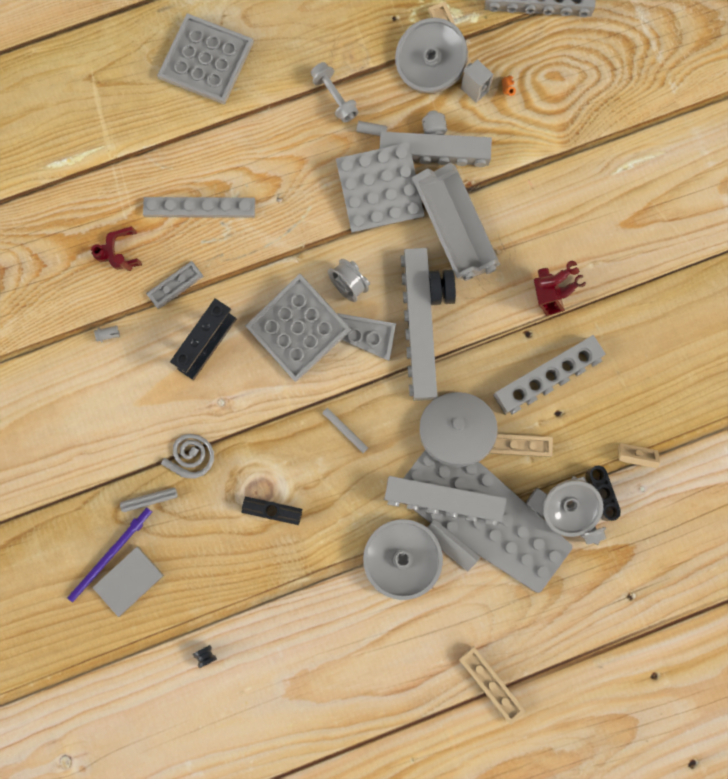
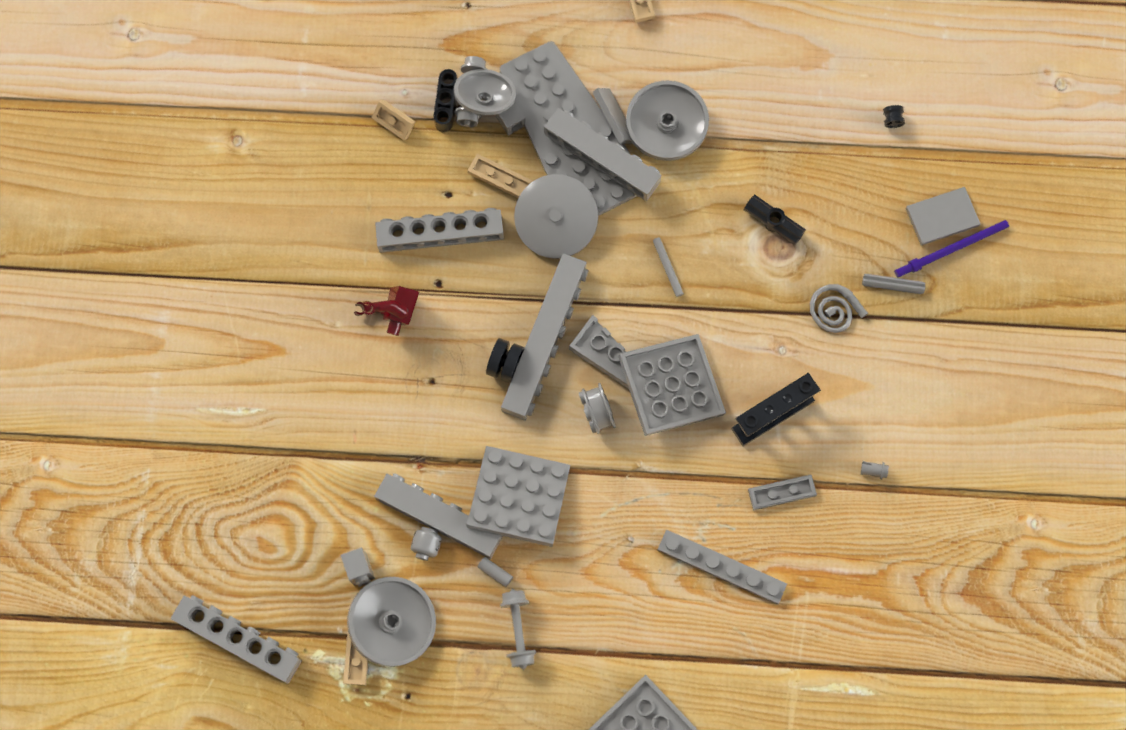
camera: 155 degrees left, 5 degrees down
(107, 252) = (840, 556): dark red piece -> none
(456, 222) = (456, 422): light grey panel -> none
(506, 86) = (327, 549): orange arm -> none

